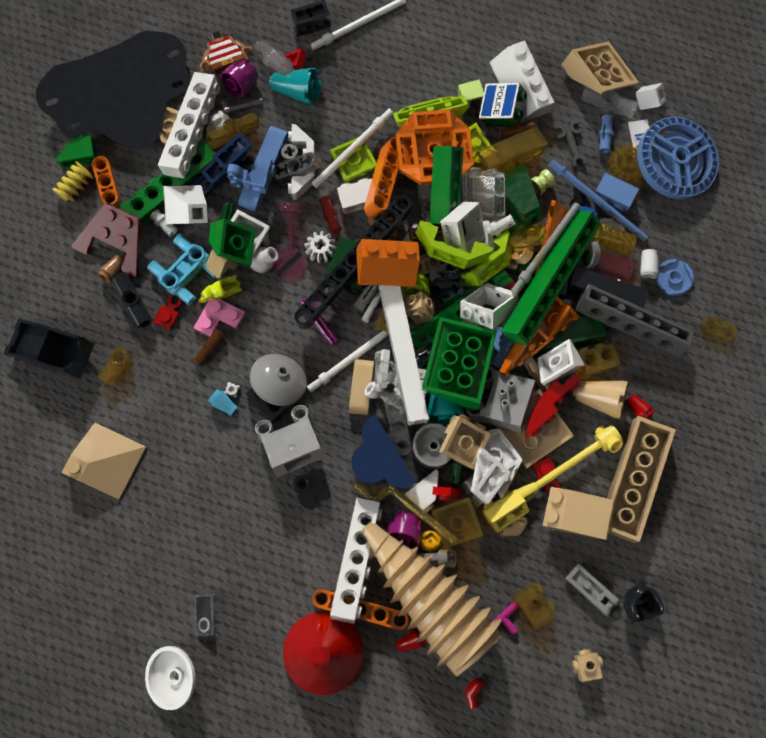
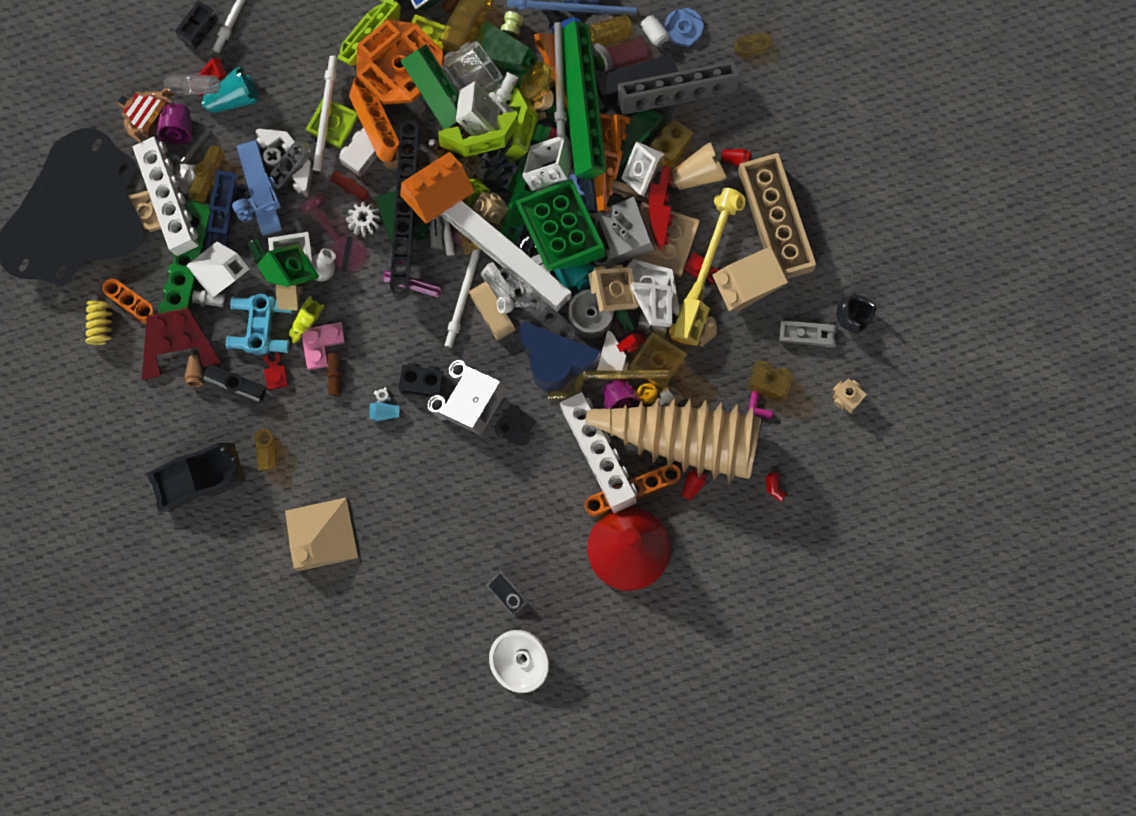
camera: 35 degrees left, 0 degrees up
(79, 150) = (80, 290): green slope -> none
(274, 386) = (416, 356): light grey dish -> none

